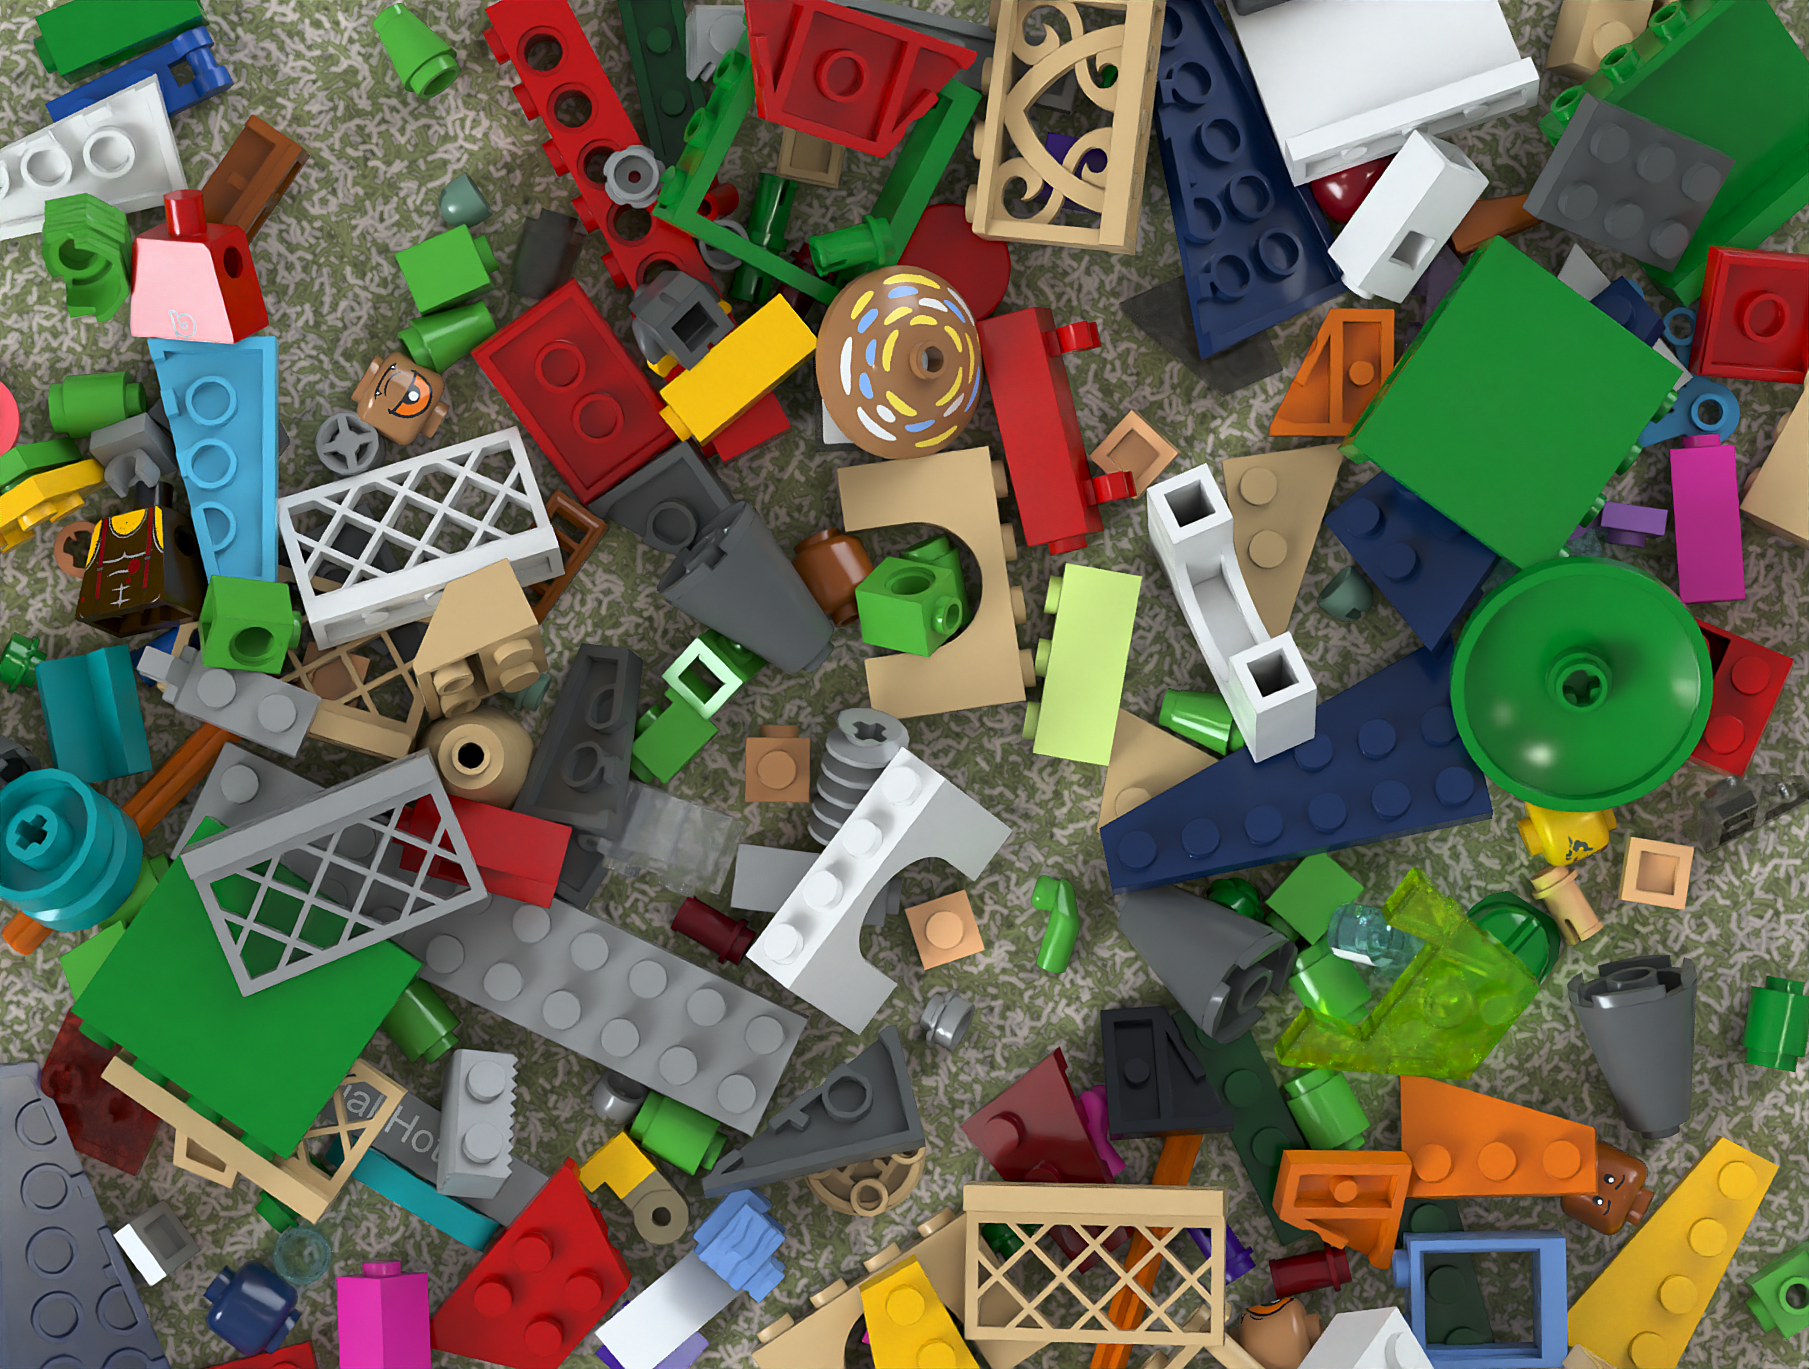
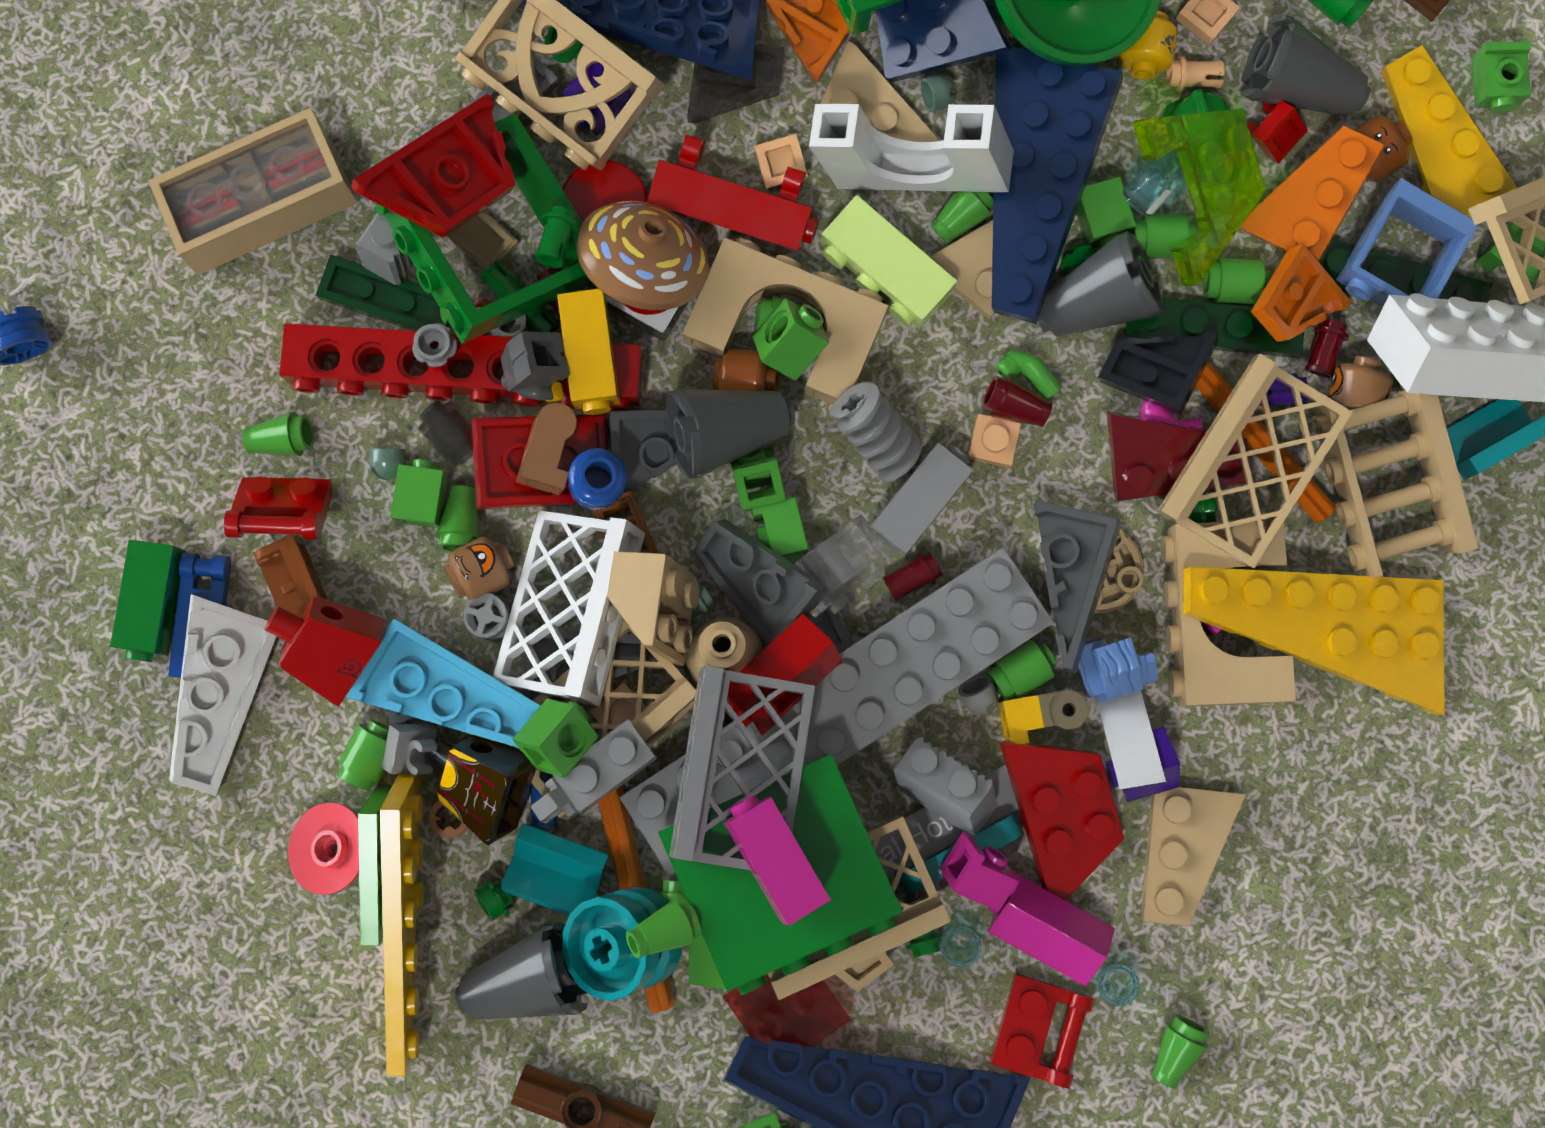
camera: 55 degrees left, 5 degrees down
(91, 250) = (273, 701): bright green hair -> none
(98, 895) = (664, 930): none -> bright green cone
(156, 1243) = (900, 1032): light grey tile -> none
(251, 1308) = (975, 996): dark blue head -> none
(252, 974) = (775, 859): none -> dark pink brick
(327, 110) = (279, 507): none -> red plate
(395, 1225) = (979, 873): none -> dark pink brick
(422, 1023) = (866, 784): bright green brick -> none
(590, 389) = (544, 448): none -> medium nougat leg
(590, 477) = (597, 479): none -> blue head
(778, 765) = (838, 476): medium nougat brick -> none
(817, 931) = (958, 507): white arch -> none
(947, 1019) = (1049, 470): light grey plate -> none
(1006, 927) = (1015, 402): none -> dark red cone
(1550, 1051) = (1278, 131): none -> red tile

